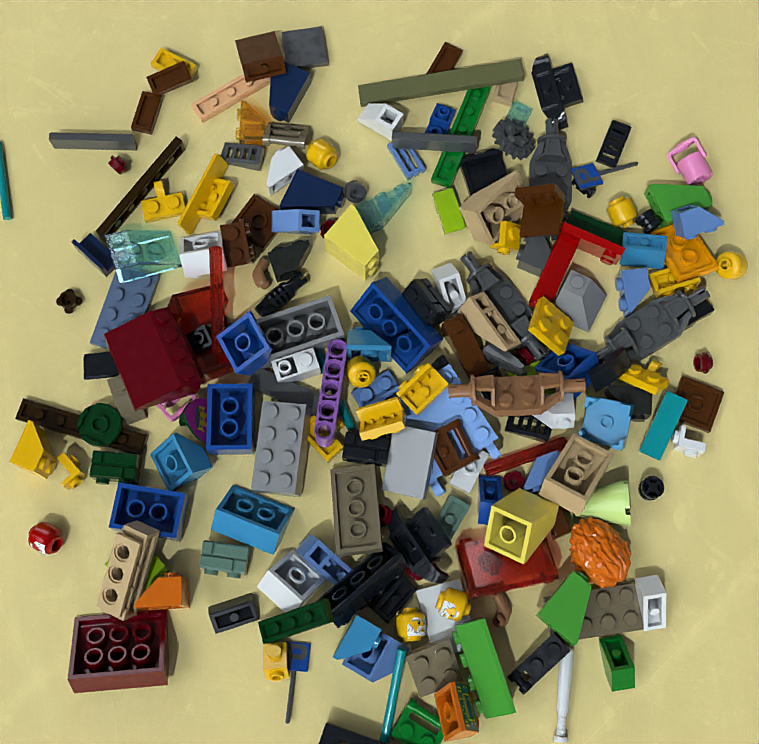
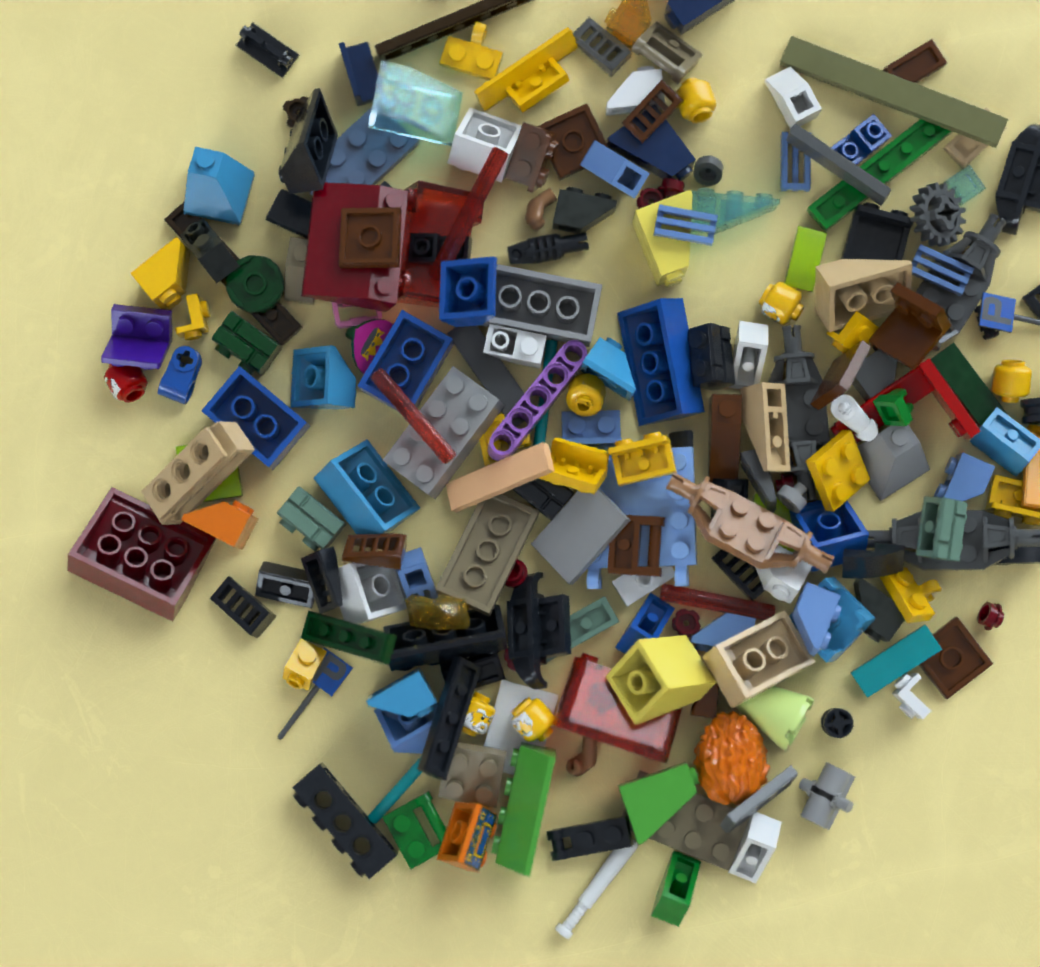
camera: 30 degrees right, 10 degrees up
(26, 273) = (266, 49): none -> black hinge
(38, 503) = (138, 337): none -> dark purple bracket
(39, 376) = (217, 187): none -> dark azure slope
(57, 419) = (209, 250): none -> pearl dark grey slope
(82, 516) = (180, 381): none -> blue piece
(87, 315) = (309, 147): none -> black slope
(160, 347) = (370, 237): none -> reddish brown tile
(230, 648) = (262, 620): none -> black slope
(251, 587) = (323, 572): none -> black slope
(255, 447) = (413, 416): none -> clear red axle
(287, 548) = (392, 552): none -> reddish brown slope
(296, 154) = (660, 119): none -> reddish brown slope
(335, 455) = (500, 477): none -> light nougat tile
(336, 213) = (671, 187): none -> dark red plate
(347, 569) = (439, 614): none -> clear yellow slope
(359, 218) = (663, 209): none -> medium blue tile
(396, 636) = (449, 718): none -> black tile
(450, 245) = (781, 303): none -> yellow head
(515, 265) = (840, 375): none -> reddish brown tile
(533, 359) = (792, 497): none -> light grey tile
(534, 285) = (852, 415): none -> white piece
(552, 162) = (967, 270): none -> medium blue tile
(561, 266) = (893, 408): none -> green tile
(594, 425) = (813, 615): none -> medium blue slope
(634, 568) = (758, 799): none -> tile
(639, 322) = (941, 528): none -> sand green brick
(675, 539) = (827, 795): none -> light grey pin

